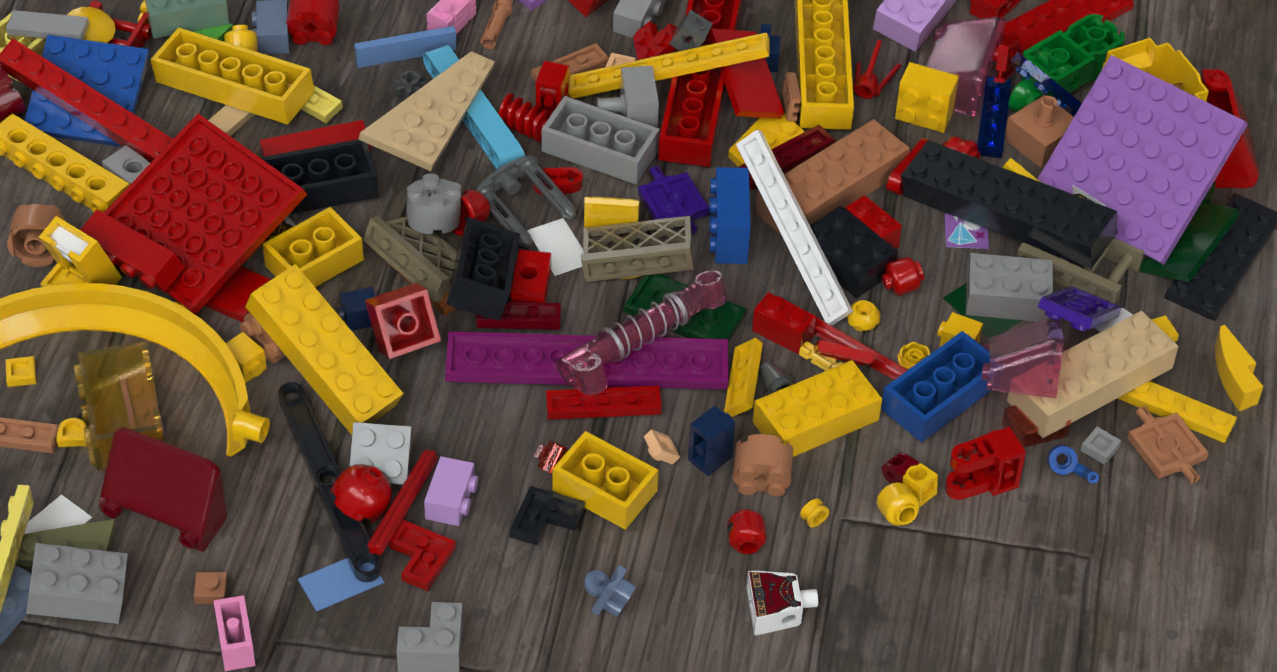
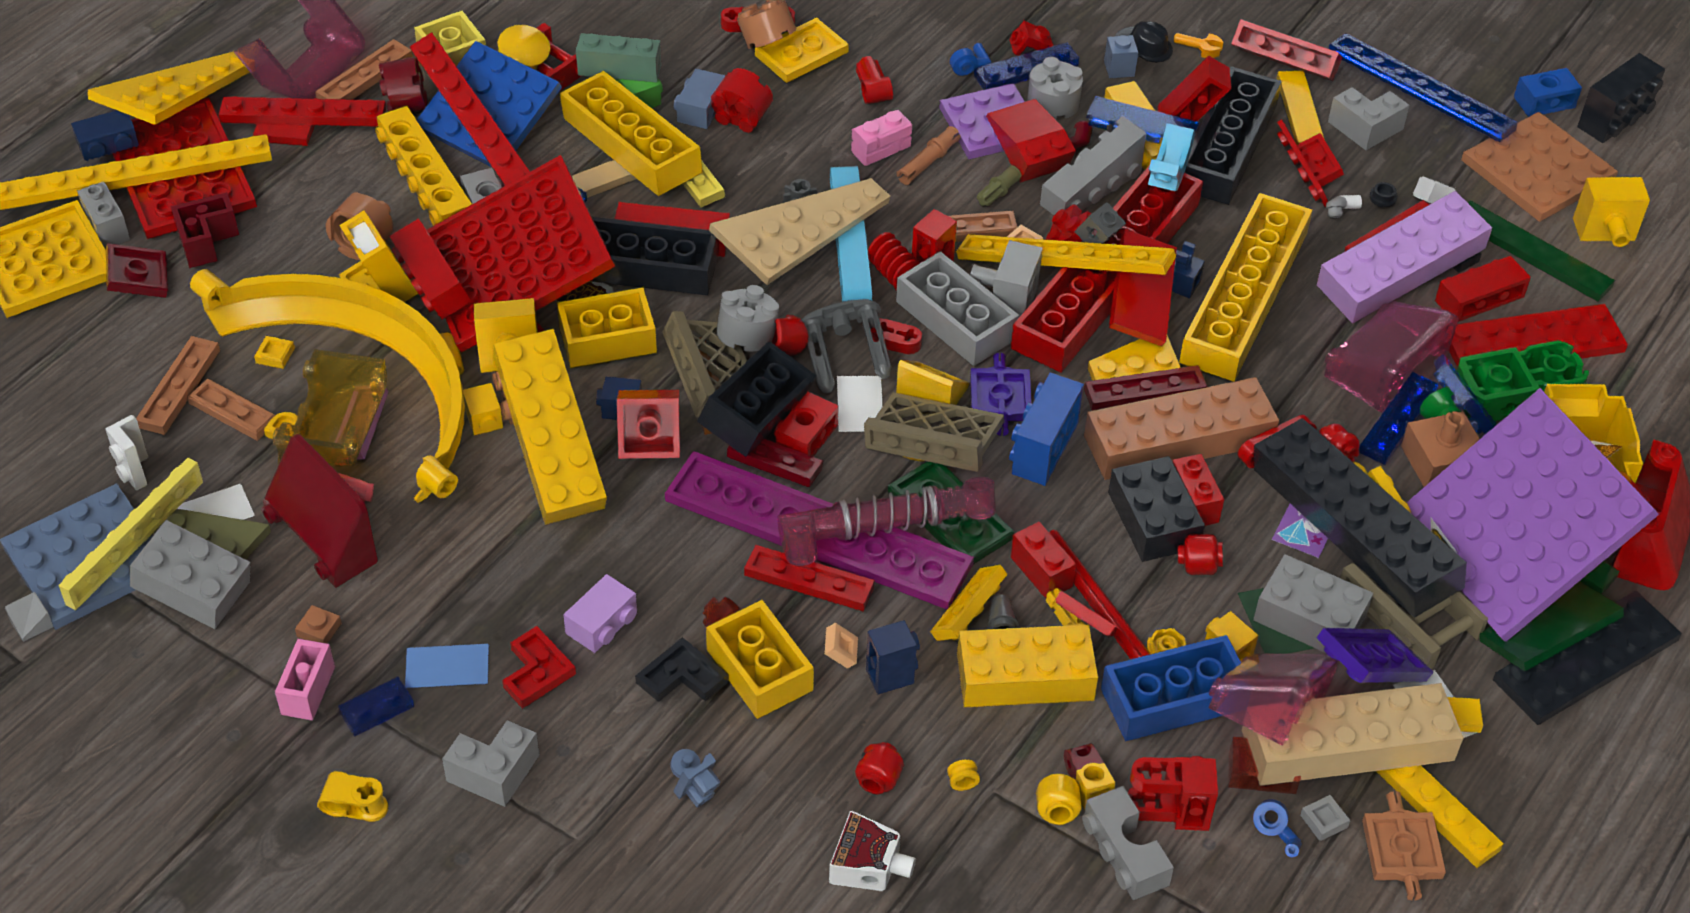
camera: 25 degrees right, 0 degrees up
(44, 24) = (476, 29): light grey tile -> none
(232, 281) = (499, 323): none -> yellow brick
(242, 37) = (661, 101): yellow head -> none
(302, 634) = (376, 706): none -> clear blue plate
(321, 463) = (490, 577): black beam -> none
(362, 492) = (509, 584): red cylinder -> none
(384, 448) = (552, 550): light grey plate -> none
(402, 502) = (544, 608): red axle -> none
(403, 46) = (816, 155): medium blue tile -> none
(572, 25) = (999, 186): none -> olive axle
(762, 465) = (931, 703): nougat brick -> none
(791, 96) = (1183, 326): nougat tile -> none
(794, 228) = (1102, 464): white plate -> none
(864, 316) = (1139, 590): yellow plate -> none
(867, 84) = (1278, 337): red plant -> none
(926, 97) = (1329, 373): yellow brick -> none
(983, 533) = (1136, 867): none -> light grey arch
(1003, 57) = (1450, 347): red plate -> none
(1236, 370) = (1531, 791): yellow slope -> none

